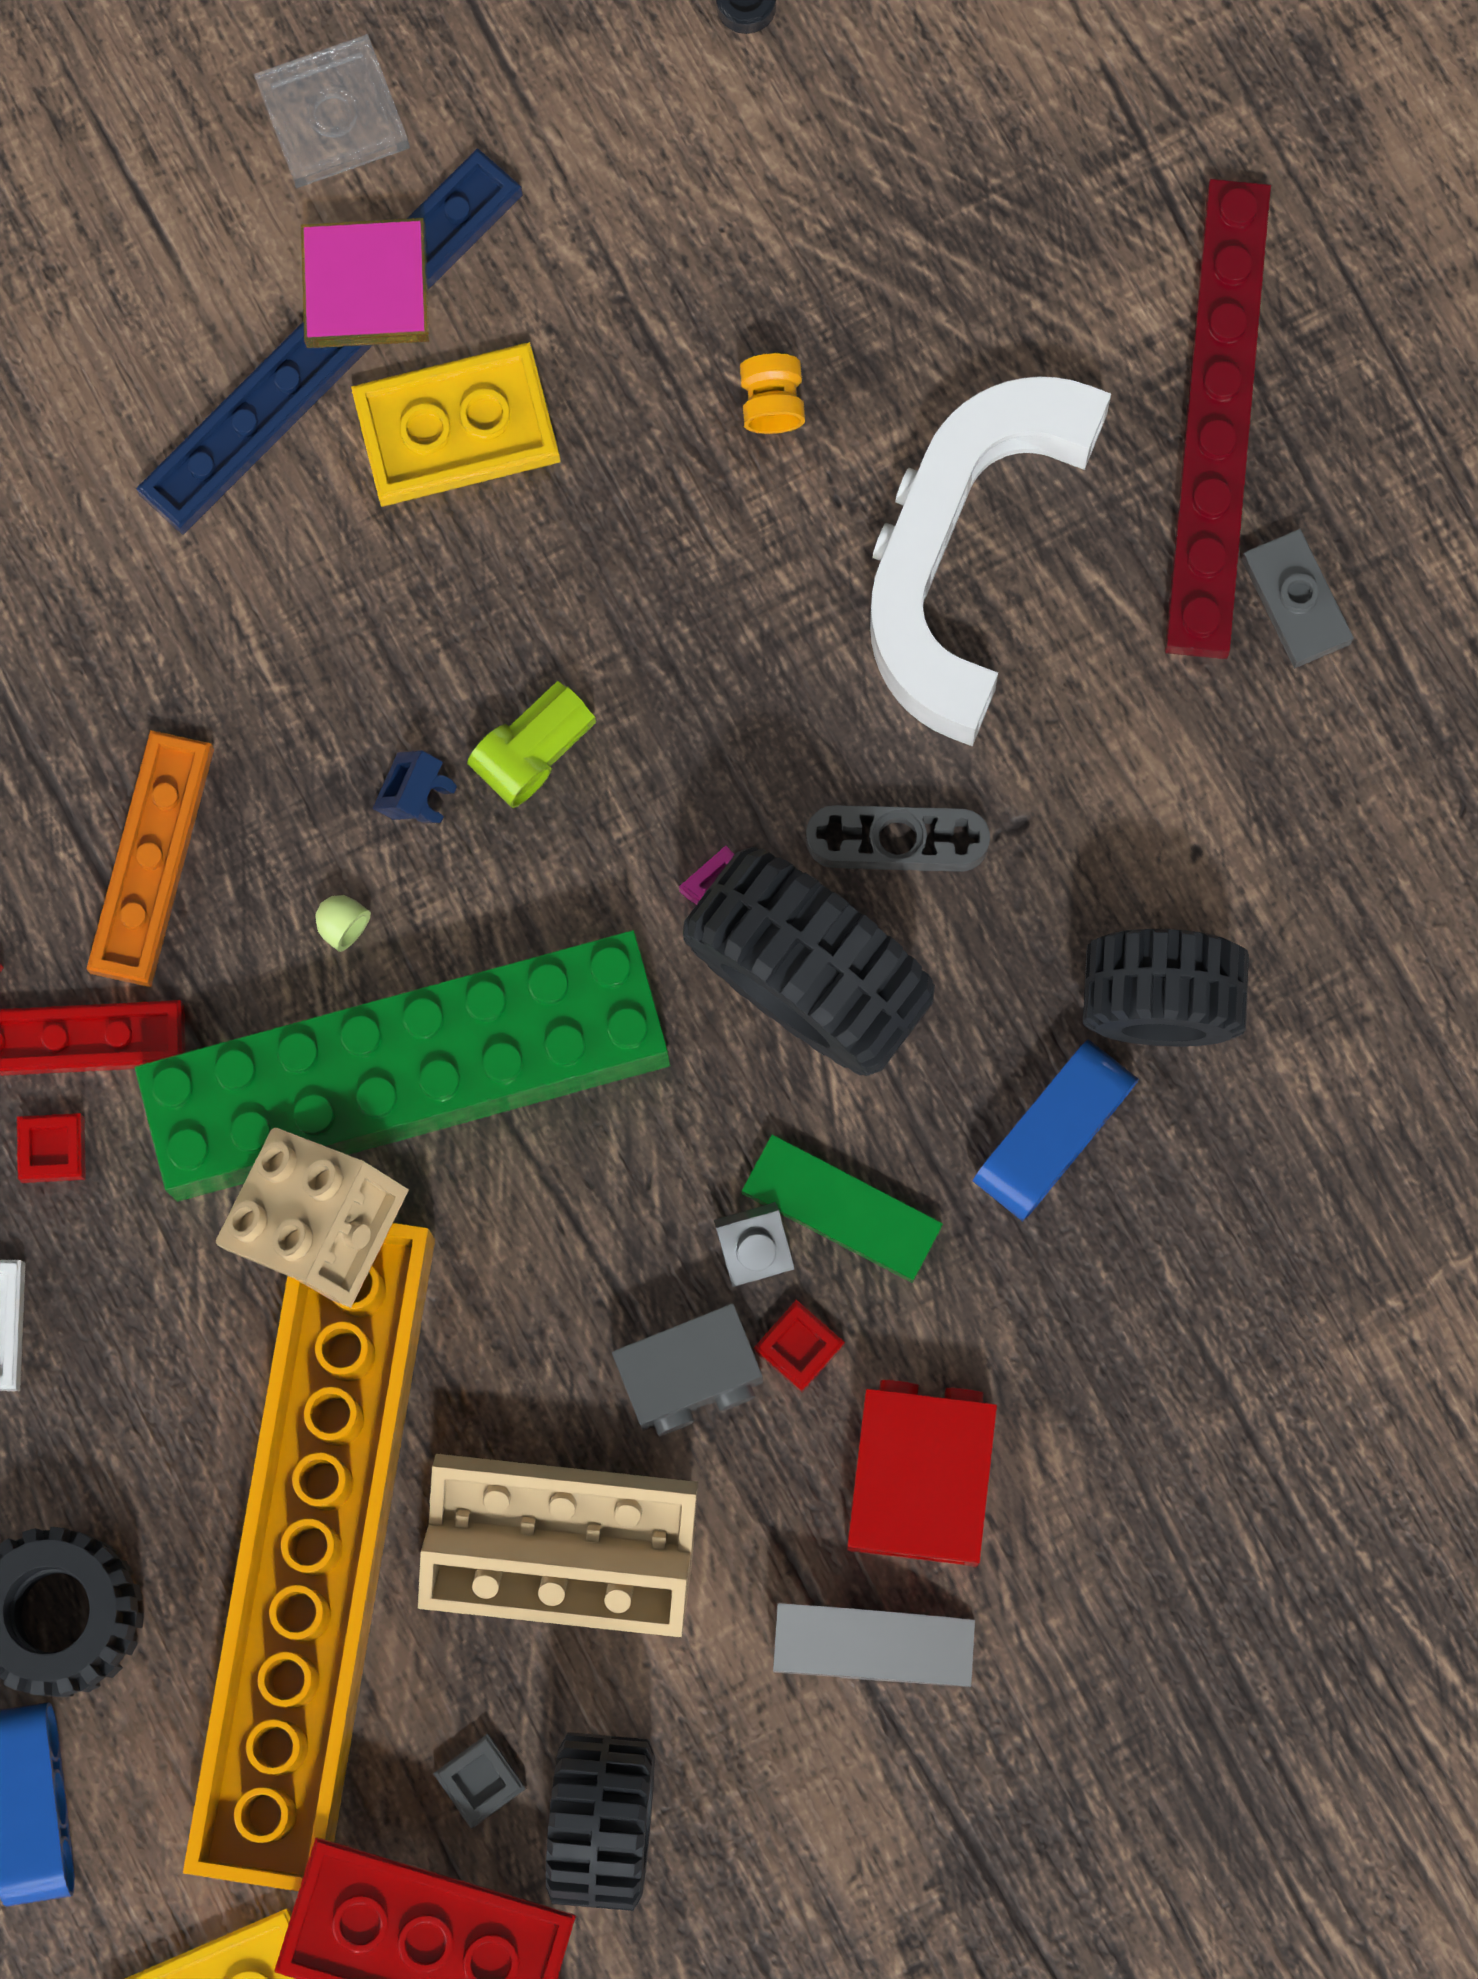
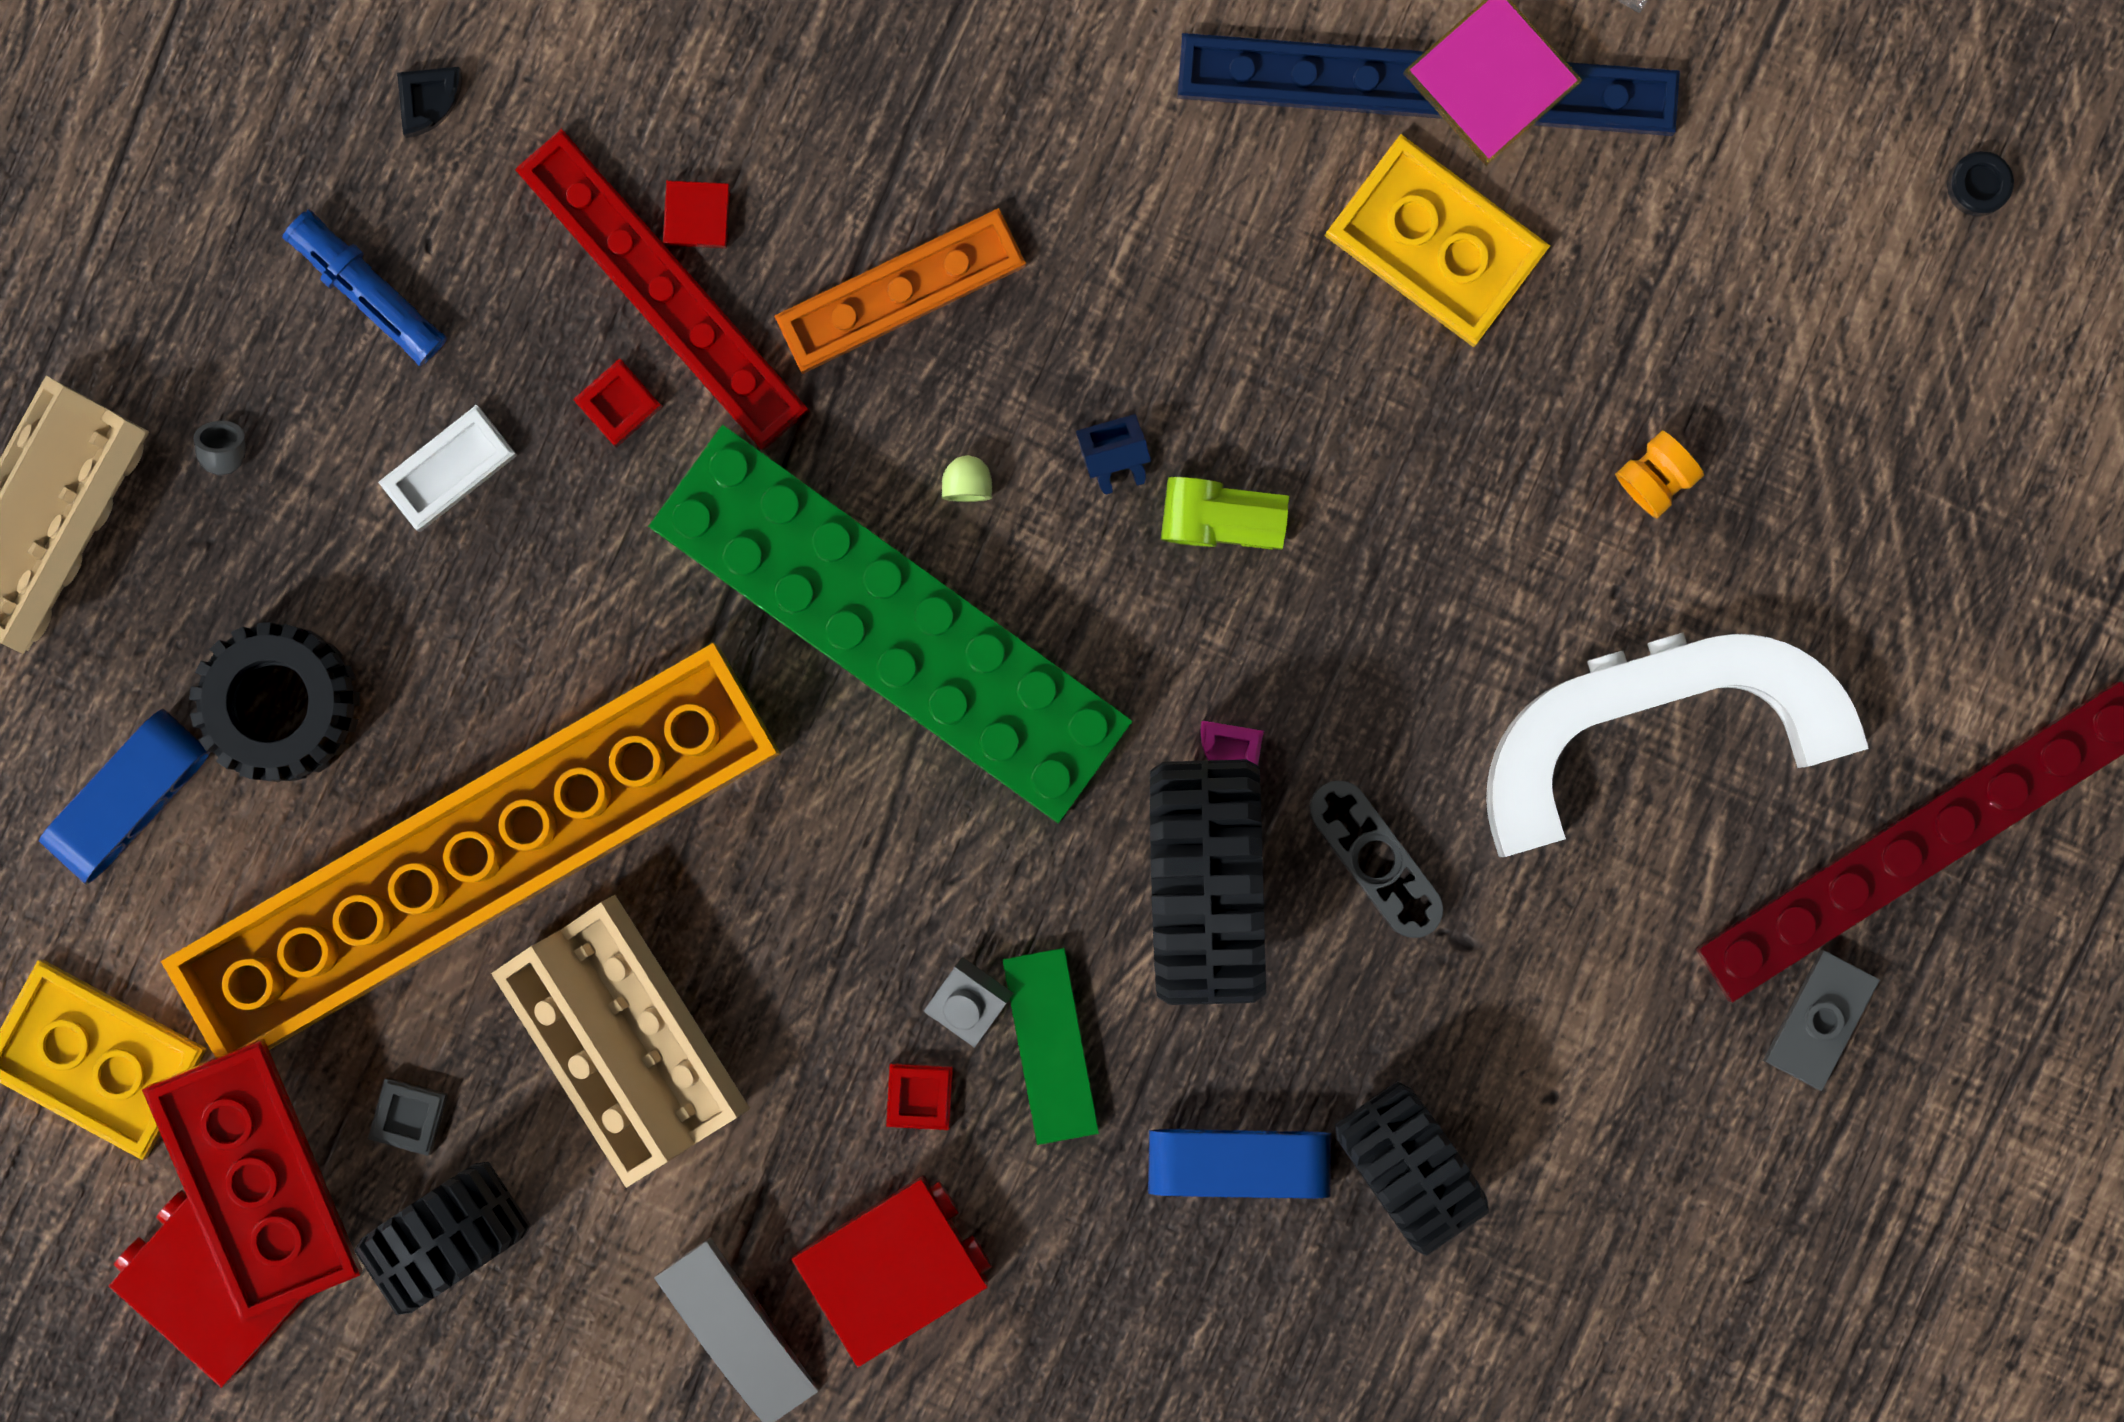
camera: 50 degrees right, 10 degrees up
(312, 1215) = (711, 659): tan bracket -> none
(687, 1369) = (832, 1030): dark grey piece -> none

